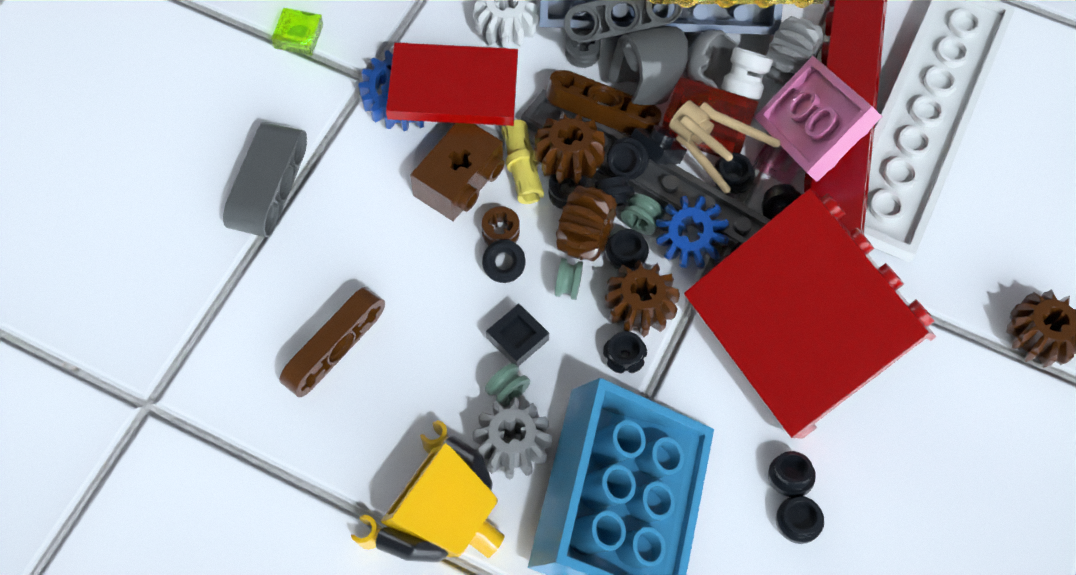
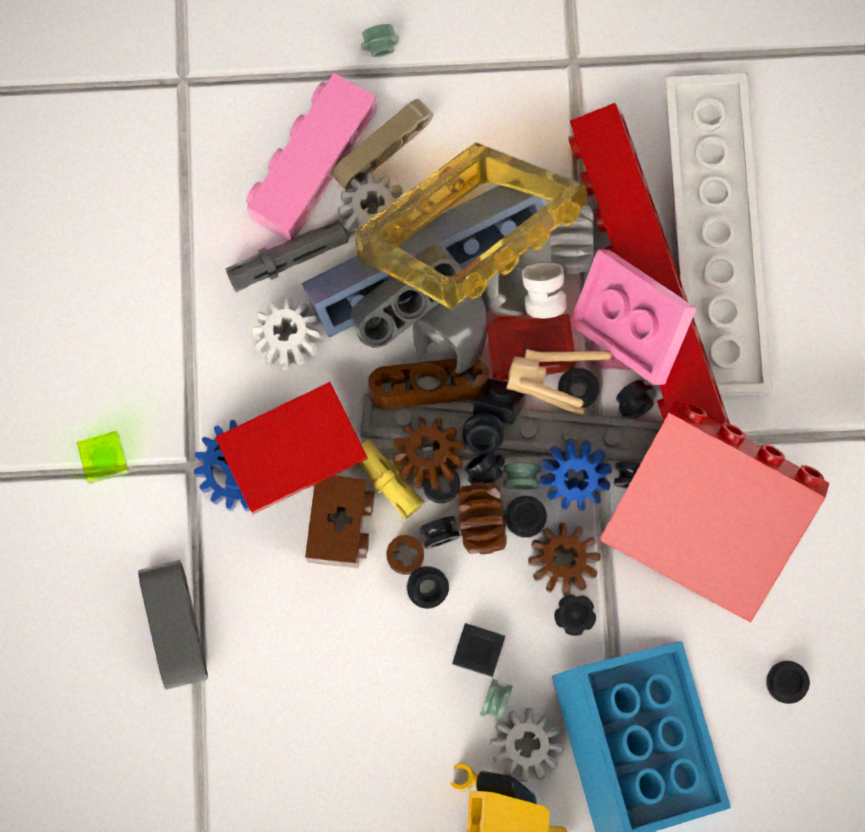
camera: 25 degrees left, 15 degrees up
(332, 342) = (328, 743): reddish brown beam -> none
(541, 221) = (439, 532): none -> black bush
(568, 278) = (493, 574): sand green bush -> none
(792, 474) = (763, 648): black plate -> none

